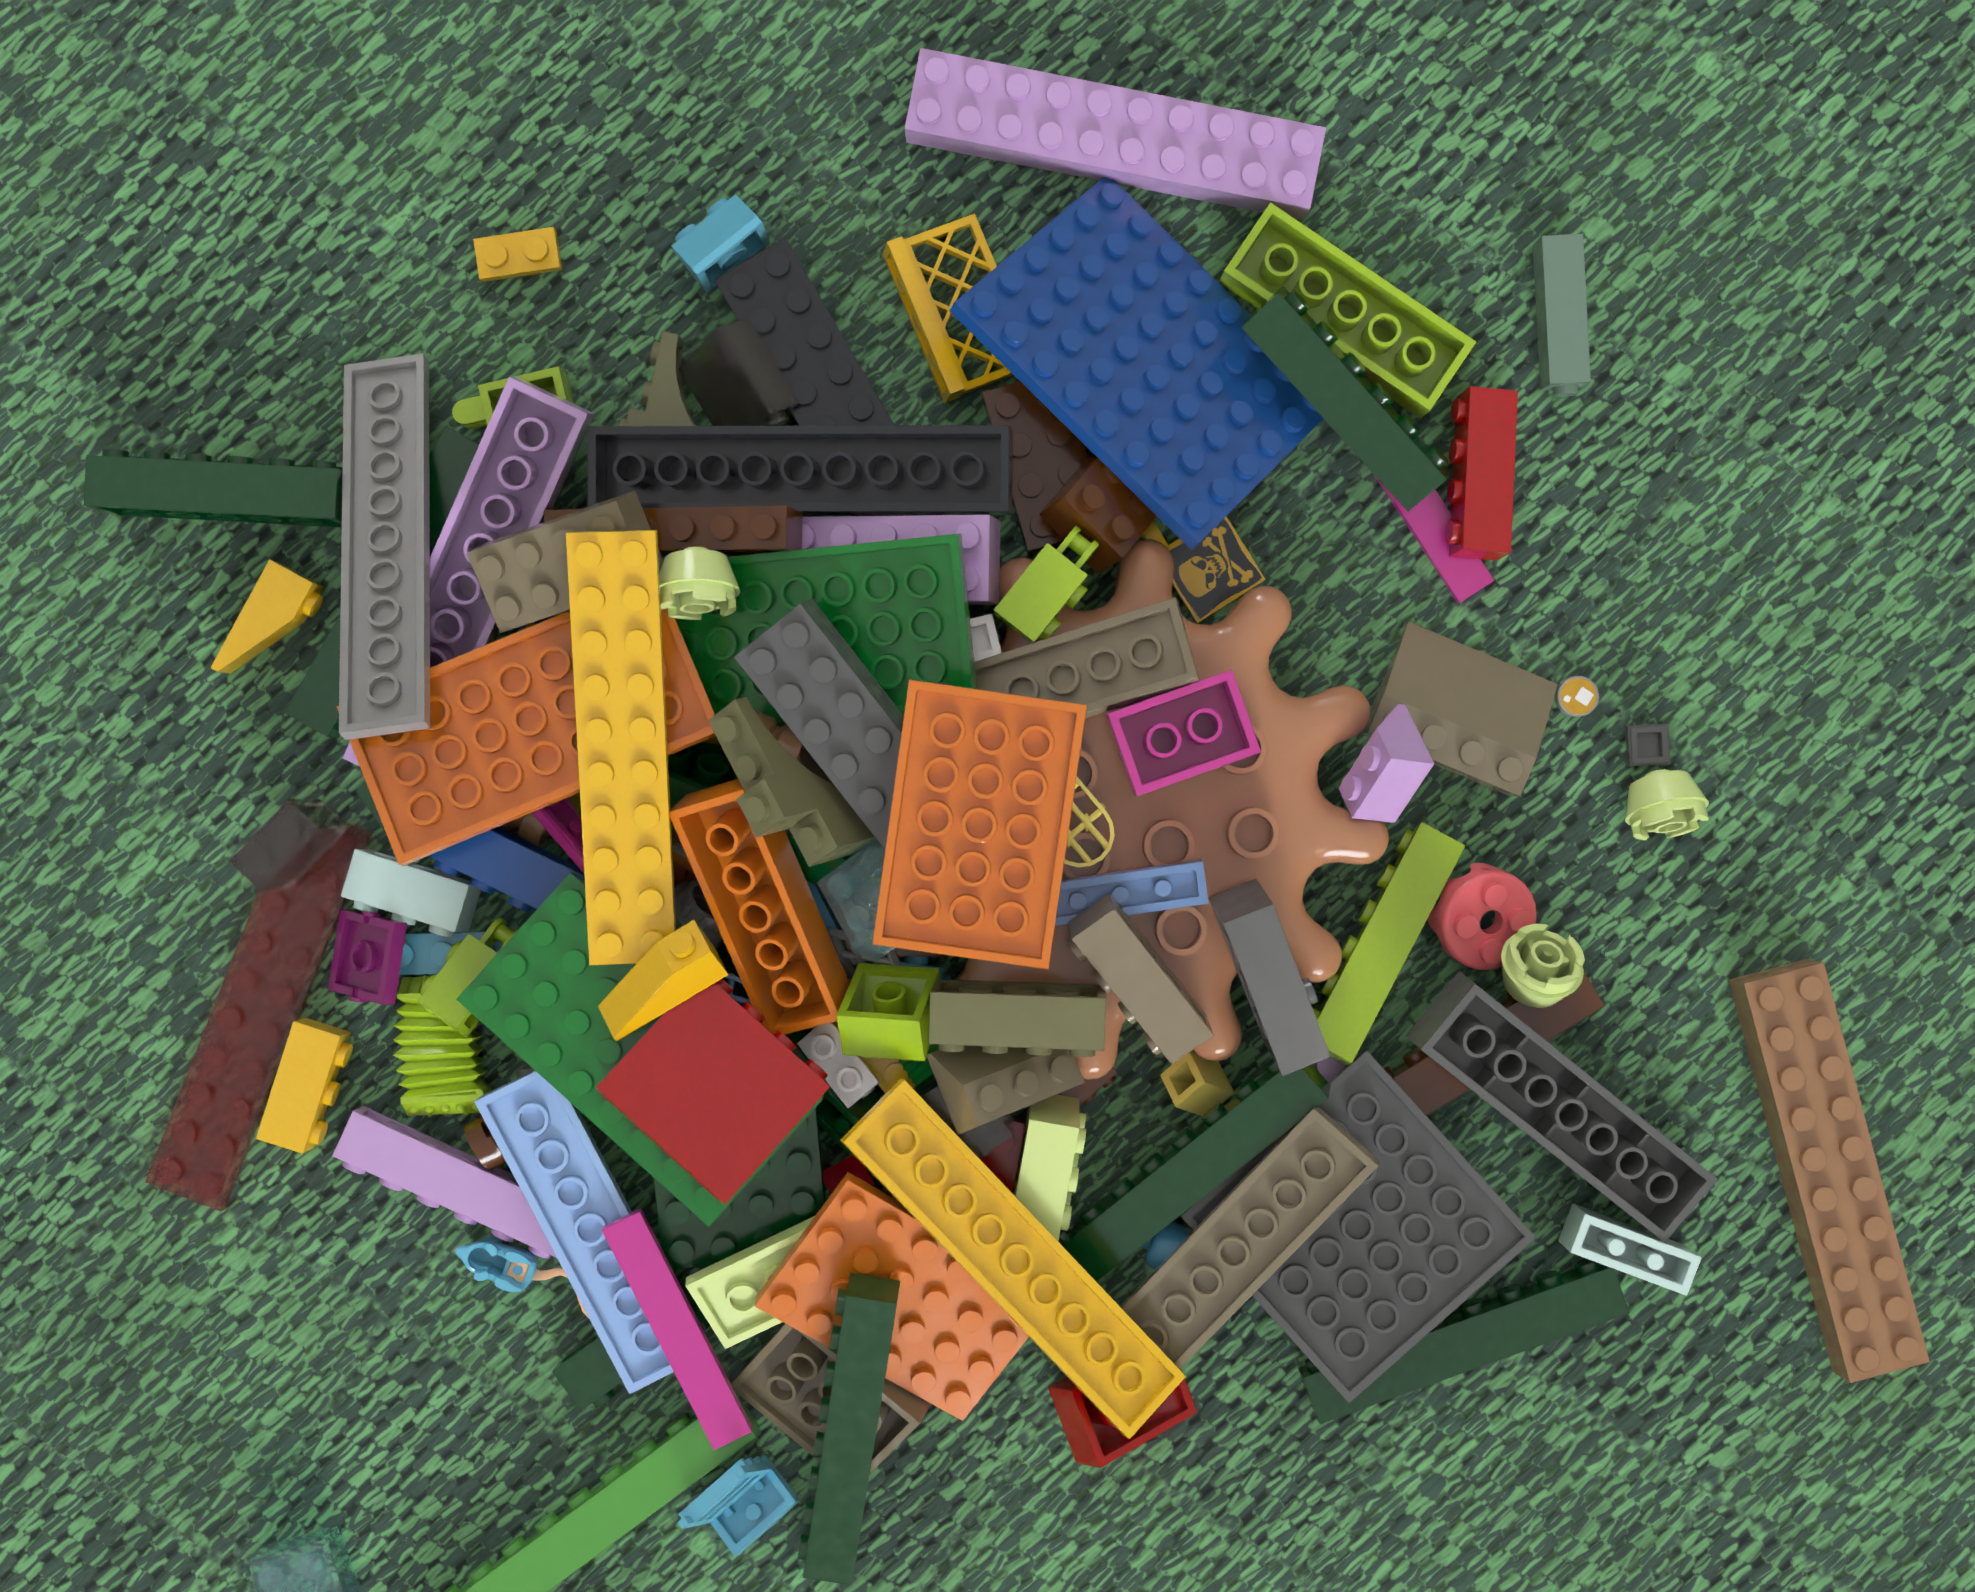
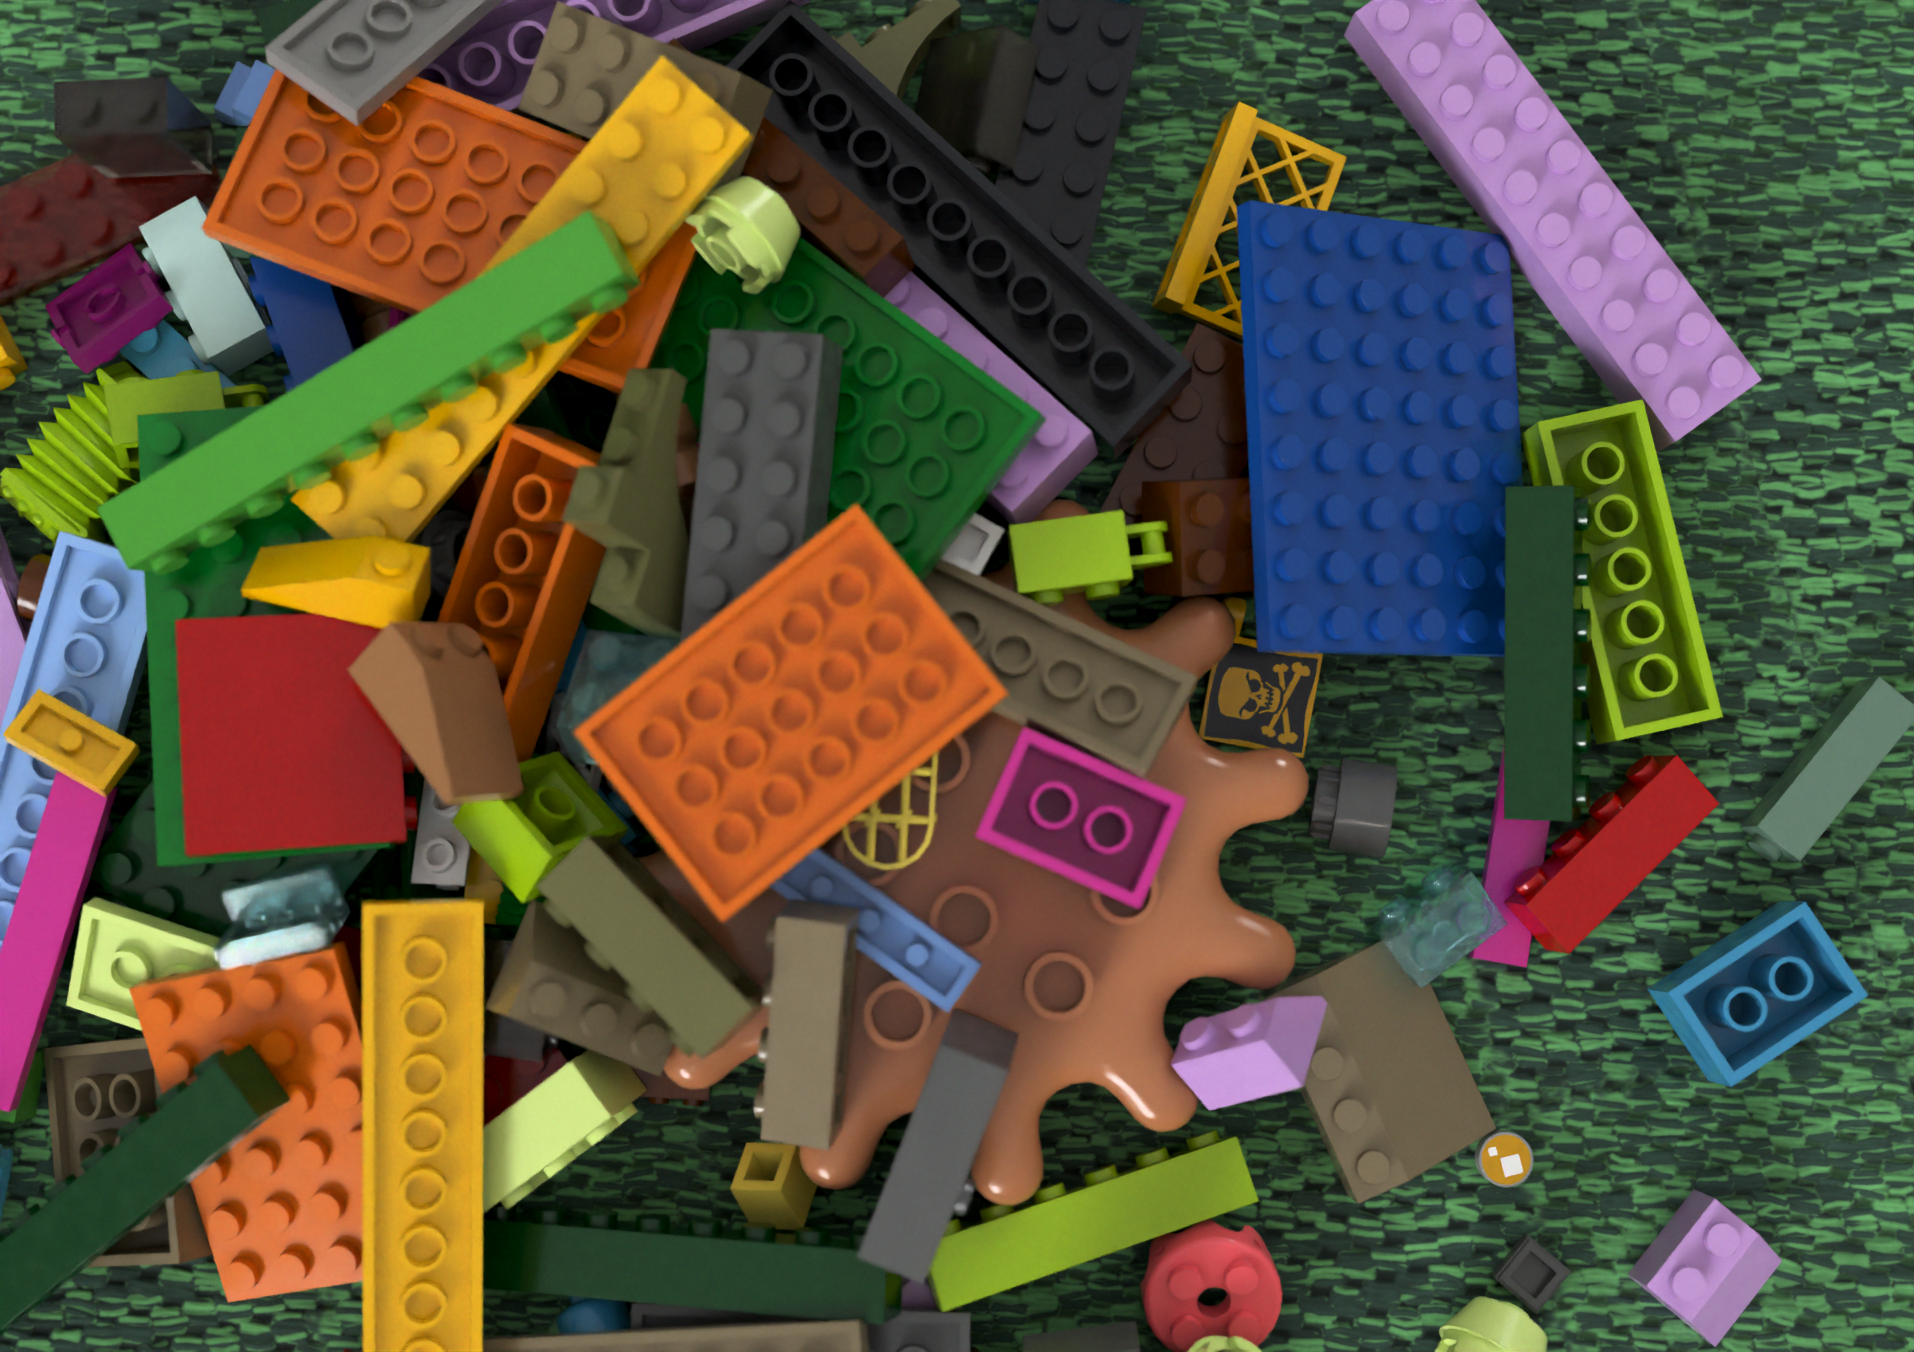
camera: 40 degrees right, 5 degrees down
(326, 765) = (243, 93): none -> medium blue slope
(585, 867) = (371, 395): none -> bright green brick
(595, 1207) = (71, 743): none -> yellow plate
(785, 997) = (443, 708): none -> medium nougat slope
(800, 1191) = (281, 916): none -> clear light blue bracket
(1319, 581) = (1354, 806): none -> dark grey piece
(1423, 602) = (1438, 923): none -> clear light blue bracket
(1632, 476) = (1757, 992): none -> dark azure brick
(1738, 652) = (1705, 1266): none -> lavender slope

